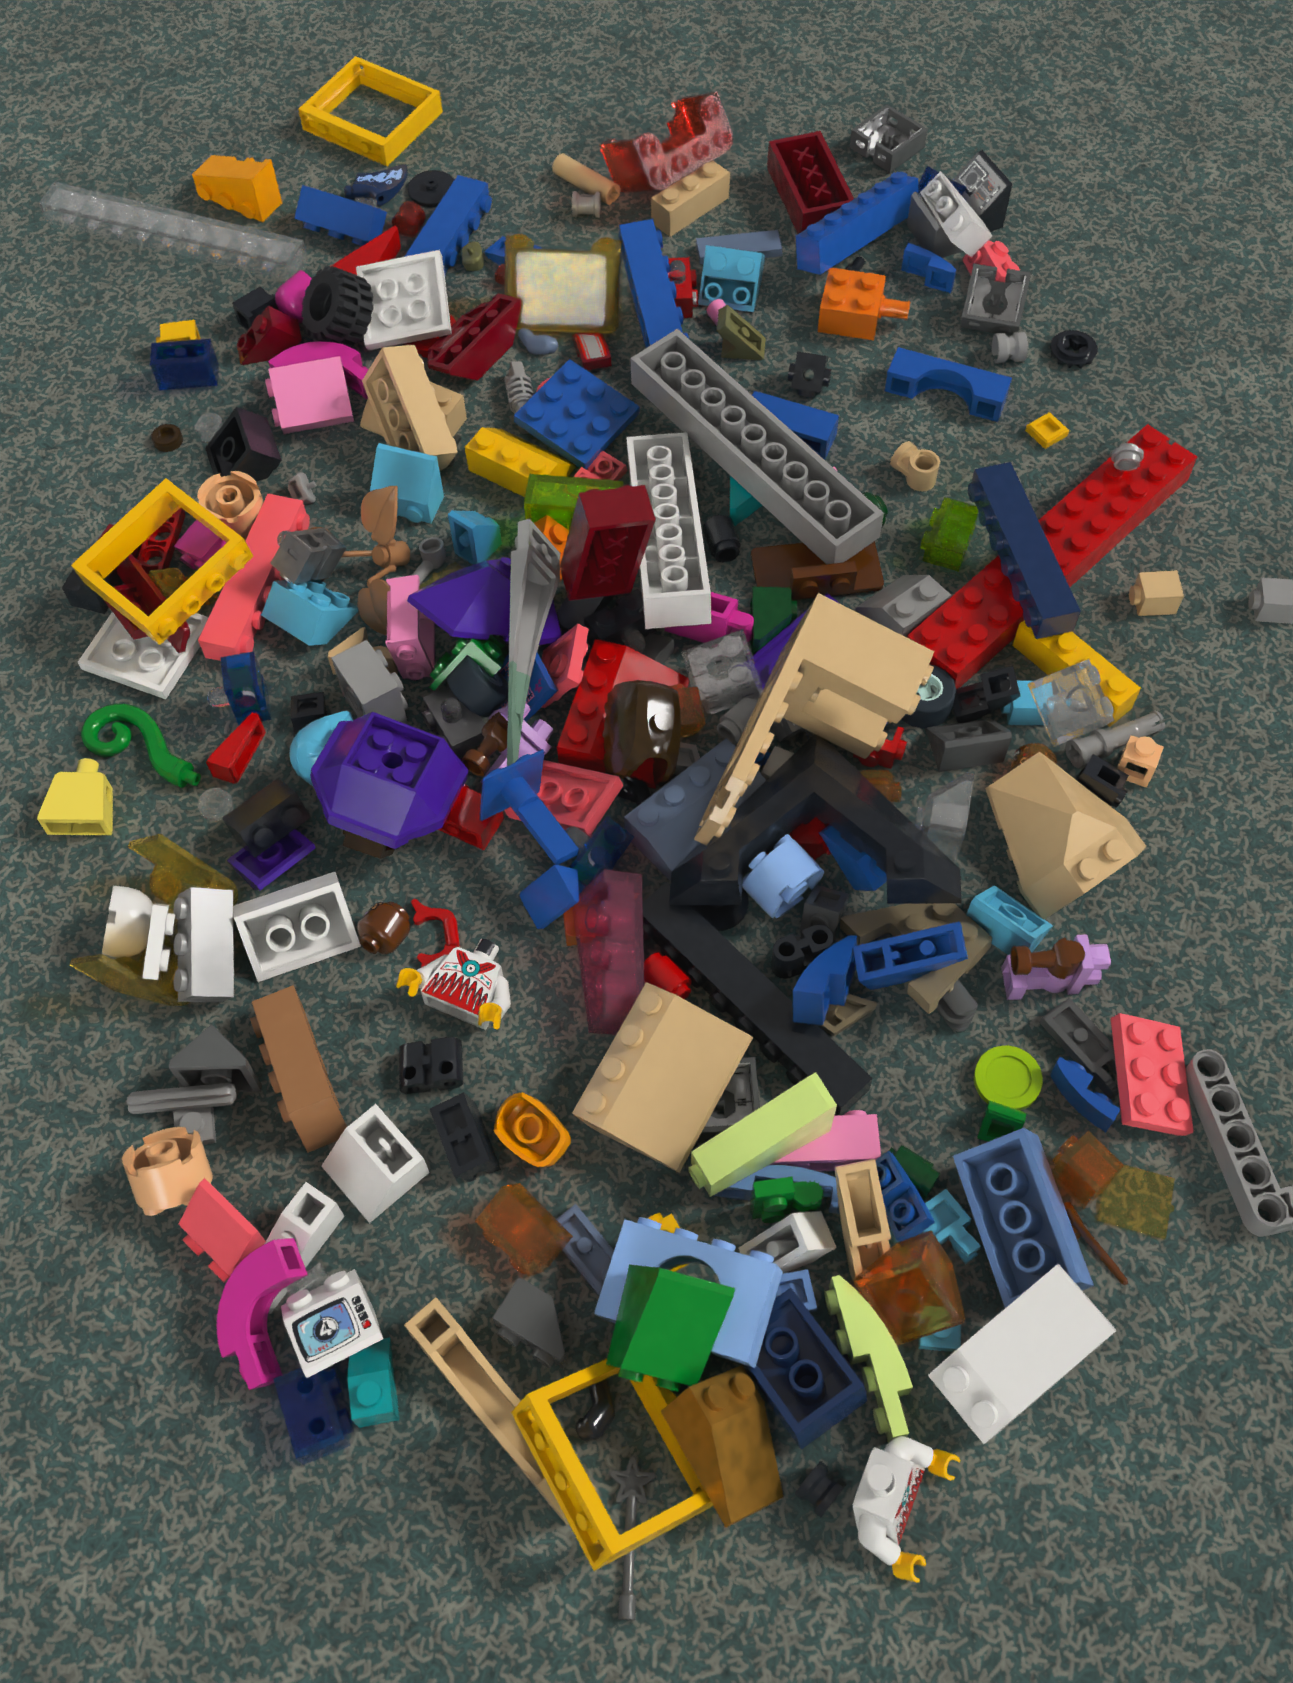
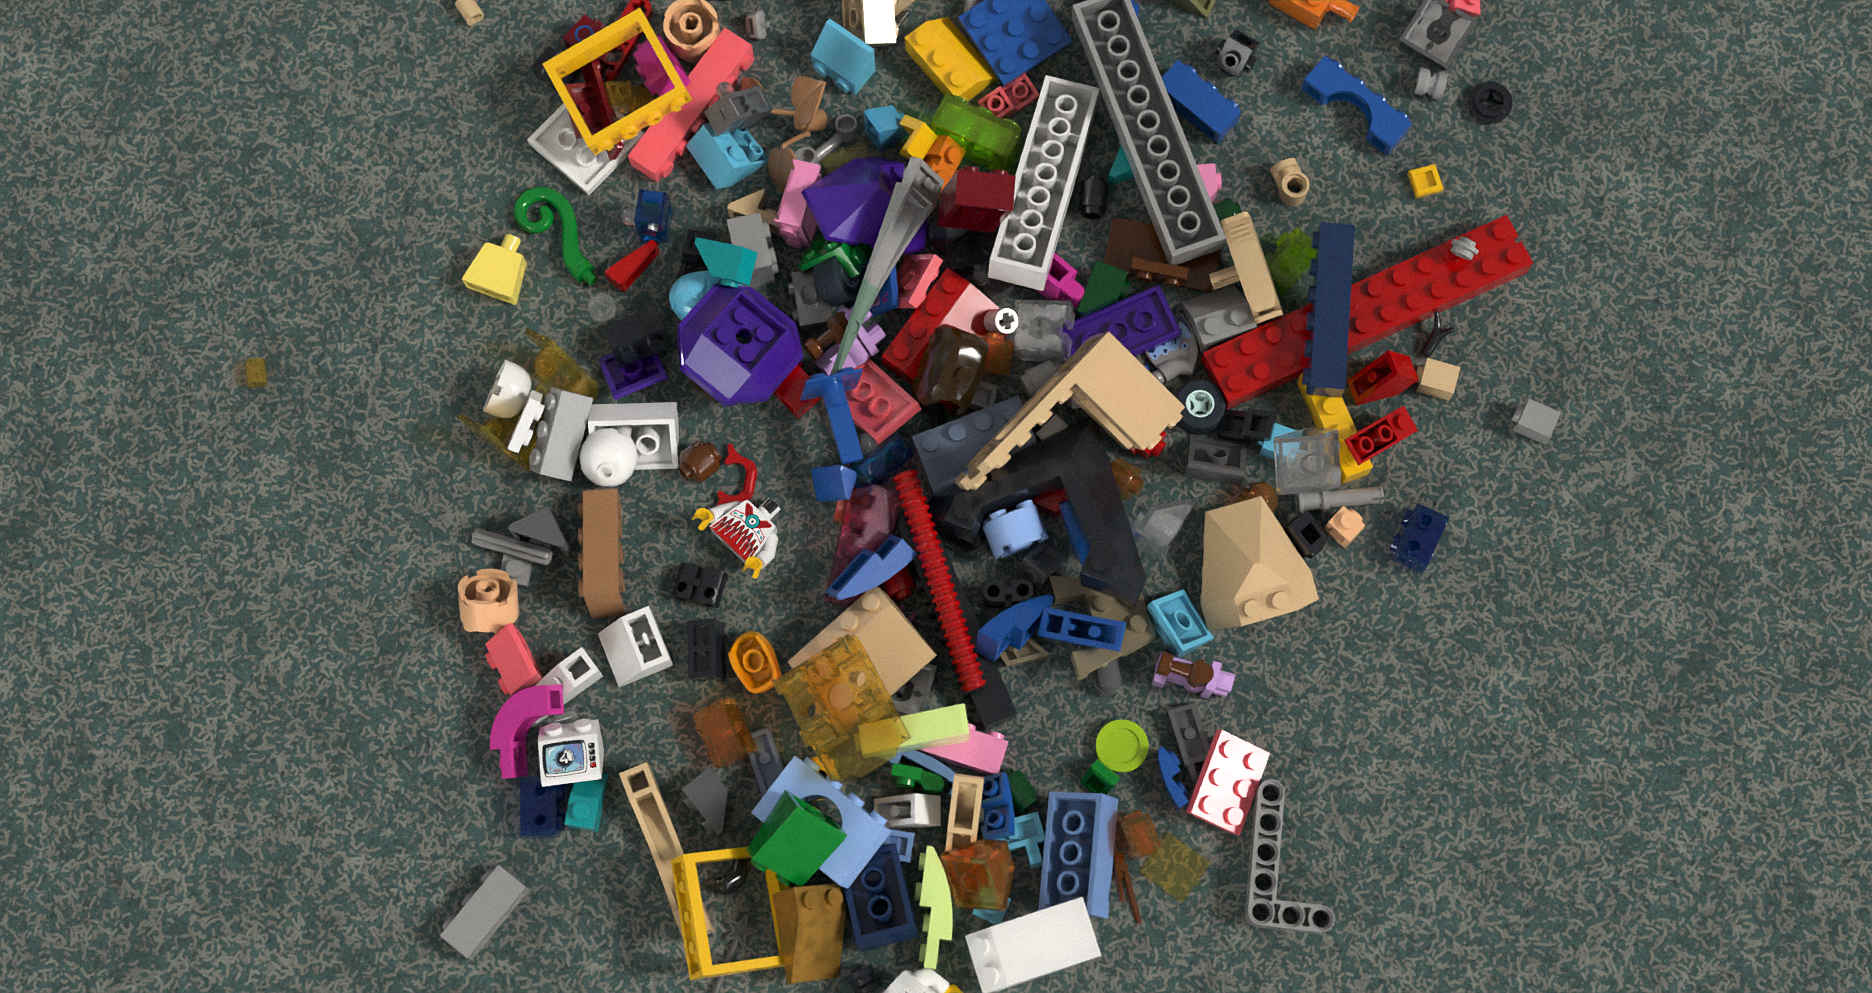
camera: 20 degrees right, 15 degrees up
(271, 954) = (608, 457): none -> white cylinder
(274, 1587) = (483, 911): none -> light grey brick
(347, 690) = (727, 261): none -> teal slope
(507, 520) = (920, 138): none -> yellow panel
(636, 964) = (872, 568): none -> slope
(677, 670) = (1009, 323): none -> white gear
(700, 1159) = (847, 738): none -> clear yellow piece
(722, 955) = (939, 580): none -> red piece
(919, 540) = (1249, 268): none -> tan piece
(1104, 607) = (1383, 378): none -> red slope
(1133, 556) = (1436, 336): none -> black bar
(1136, 650) = (1380, 435): none -> red slope
(1221, 747) = (1418, 538): none -> clear blue brick

